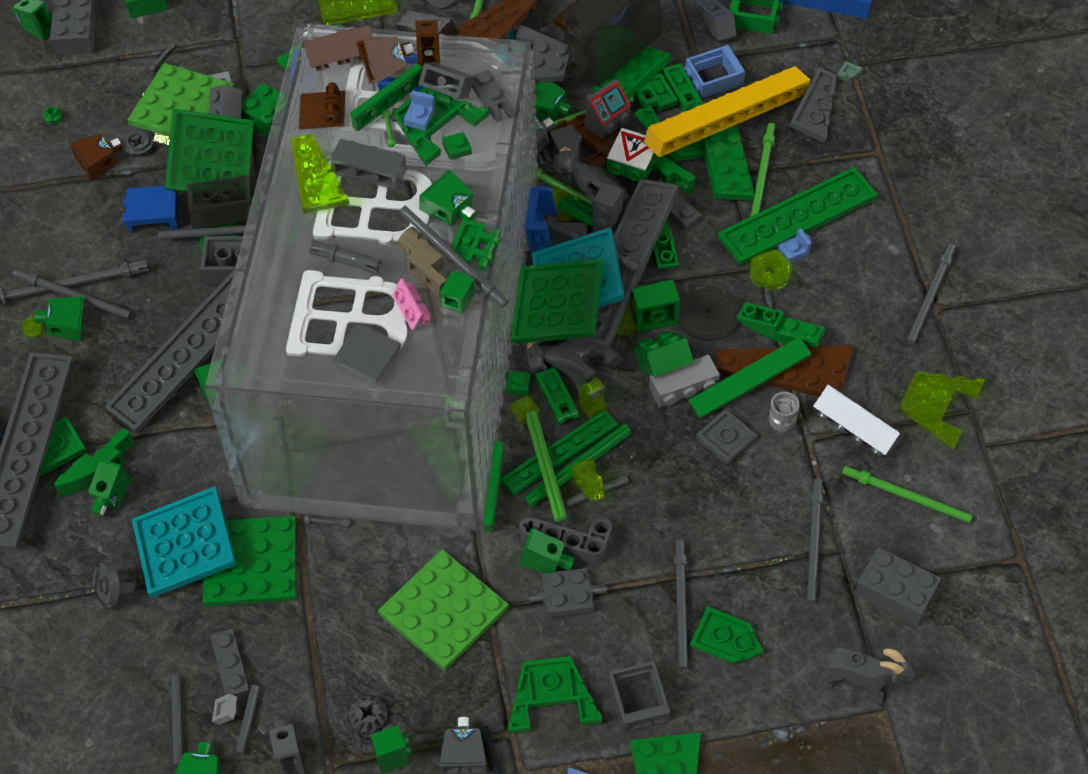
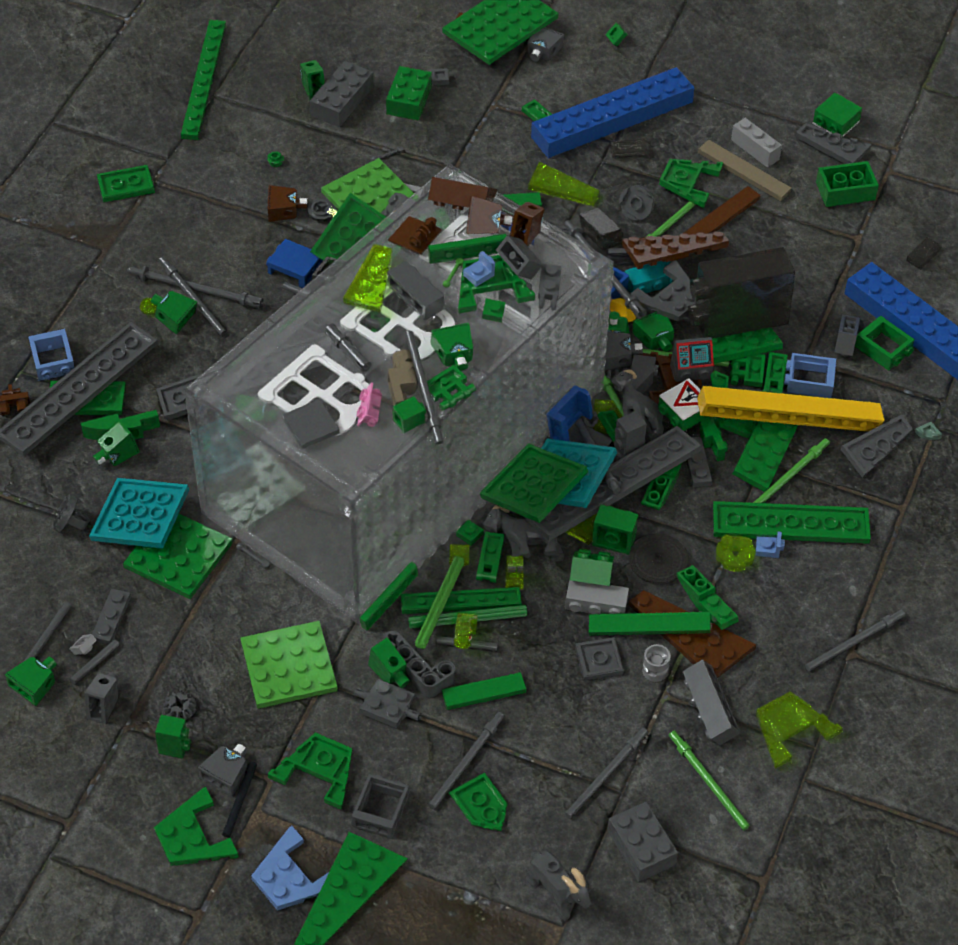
camera: 30 degrees right, 5 degrees down
(646, 528) = (483, 691): none -> green tile

